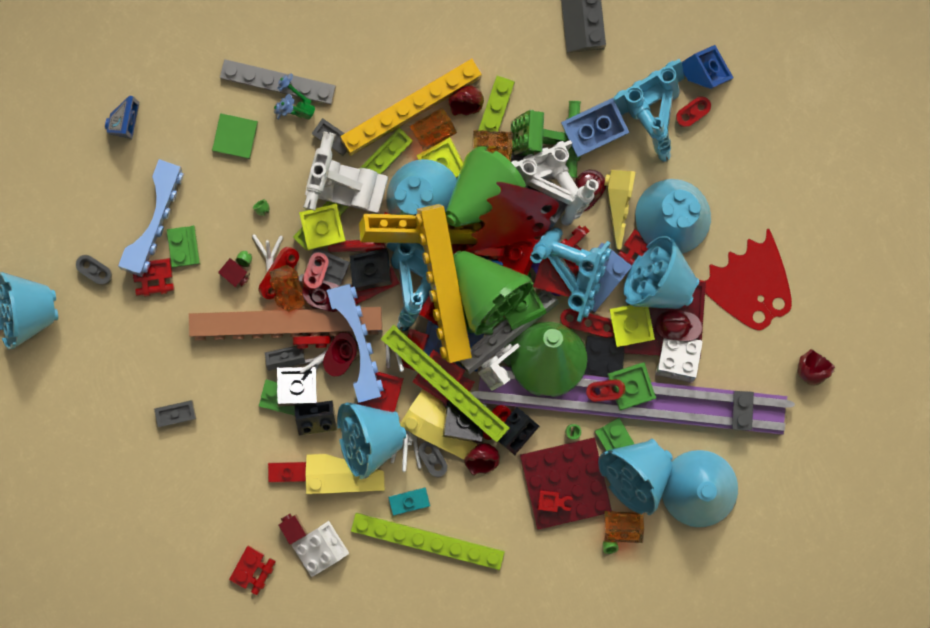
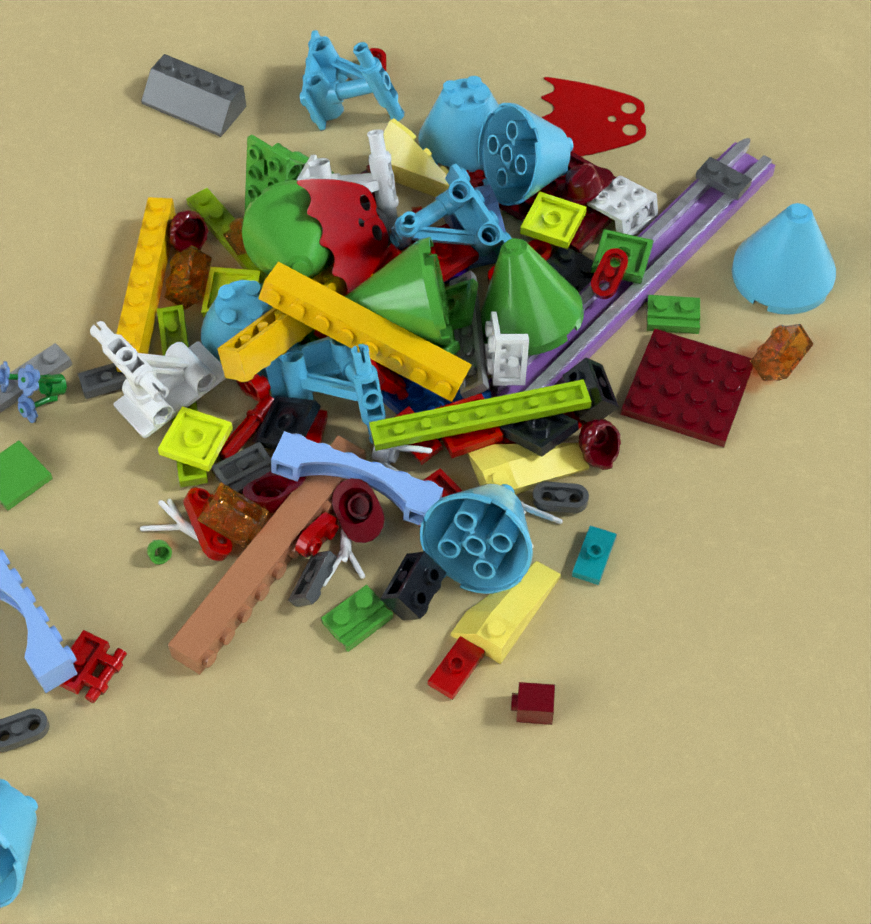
camera: 55 degrees left, 30 degrees down
(175, 413) = (278, 751): dark grey plate -> none
(183, 246) = (84, 610): bright green plate -> none
(234, 273) = (166, 570): dark red brick -> none
(247, 567) = (547, 798): red plate -> none
(261, 207) = (118, 496): bright green hinge -> none
(296, 387) = (358, 580): plate -> none
(315, 272) = (239, 473): plate -> none
(320, 549) = (584, 692): white bracket -> none
(427, 541) = (656, 567): lime plate -> none
(550, 501) = (701, 400): red plate -> none
(576, 433) = (632, 344): bright green hinge -> none
(595, 127) = (318, 133): medium blue slope -> none
(610, 547) = (796, 382): bright green hinge -> none
(637, 474) = (733, 301): medium azure cone -> none
(707, 68) = (342, 34): blue slope -> none
(814, 368) = (723, 108): dark red hair -> none

